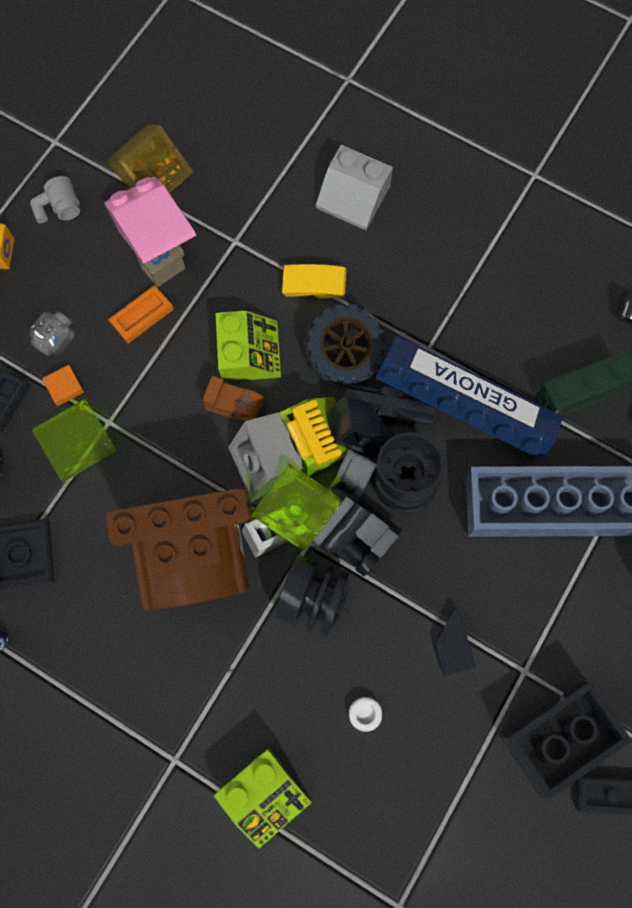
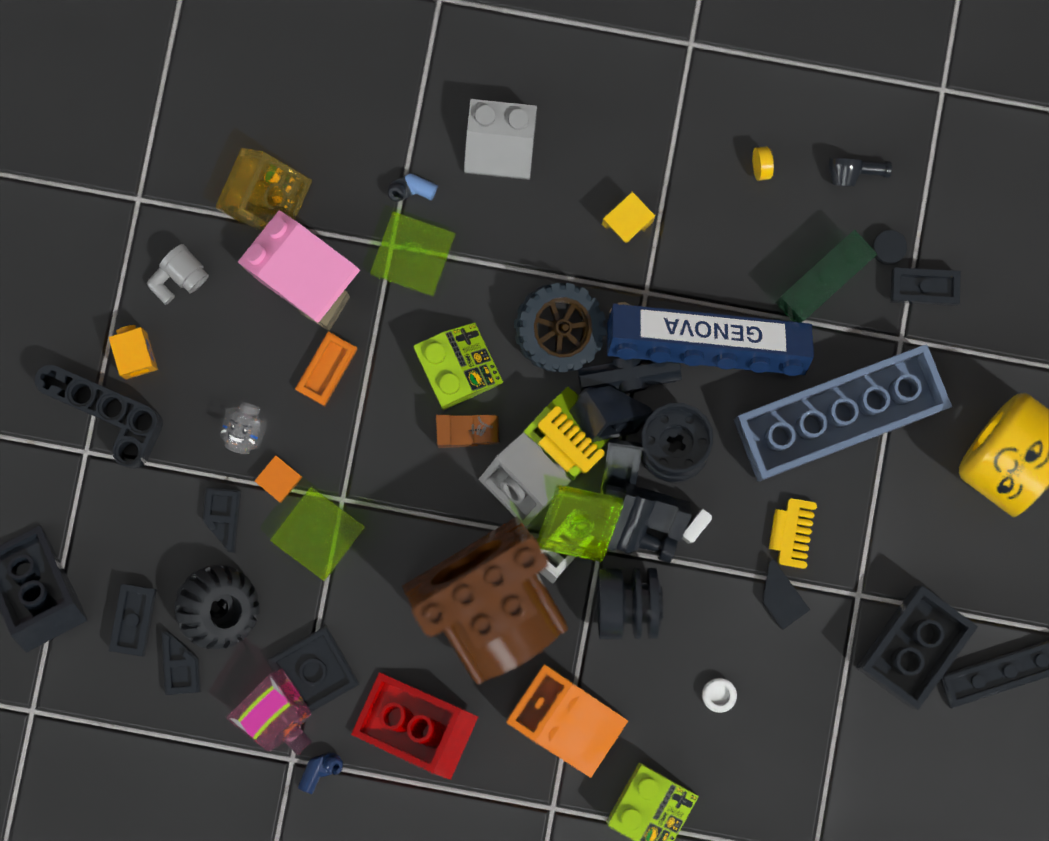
camera: 25 degrees left, 10 degrees up
(83, 636) = (414, 726): none -> red slope
(216, 682) = (566, 721): none -> orange slope
(248, 251) = (413, 254): none -> clear neon green plate
(268, 200) = (410, 185): none -> arm
(315, 280) = (498, 264): yellow slope -> none
(399, 553) = (696, 526): none -> white tile
(436, 279) = (629, 218): none -> yellow panel
(476, 589) = (785, 529): none -> yellow piece
(563, 278) = (763, 163): none -> yellow tile

